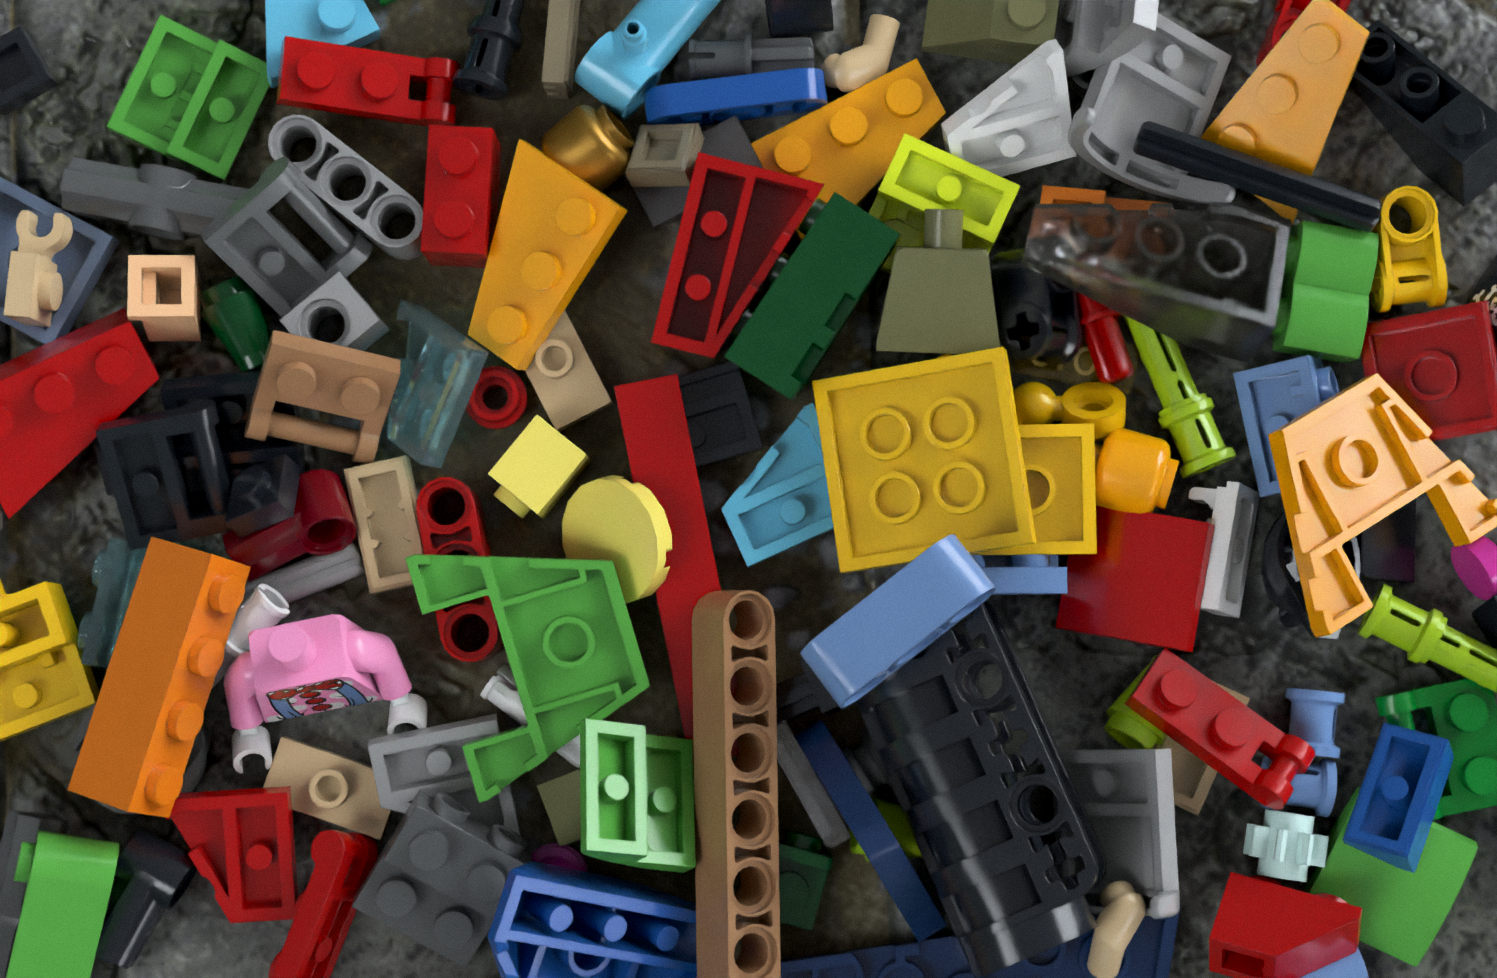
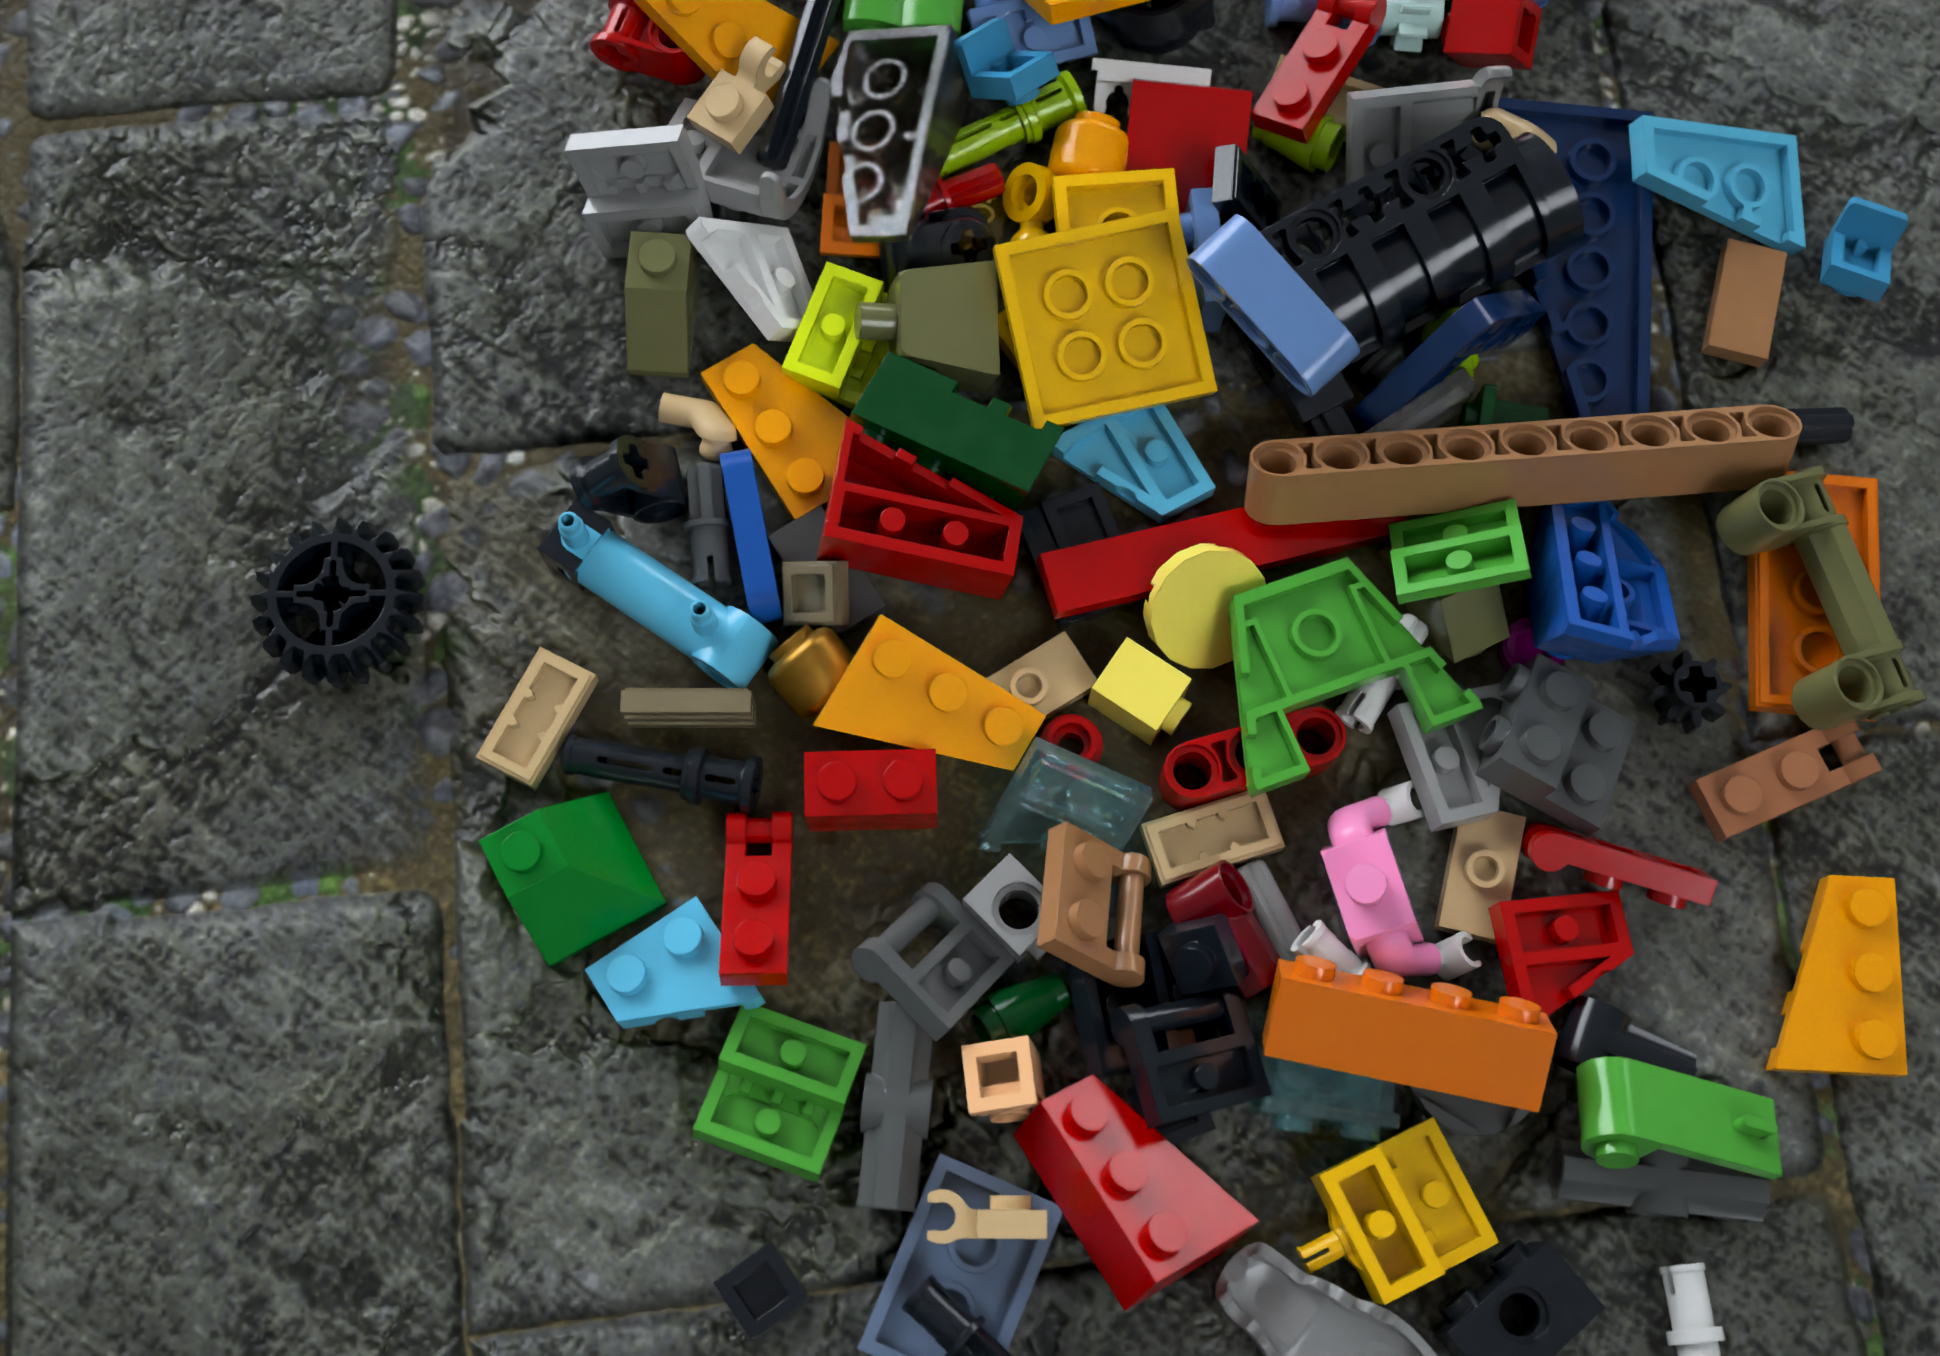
camera: 100 degrees left, 10 degrees down
(334, 163) = (875, 874): light grey beam -> none
(1060, 629) = (1242, 189): none -> black plate
(1203, 96) = (738, 104): none -> tan plate
(1232, 383) = (1000, 71): none -> dark azure bracket

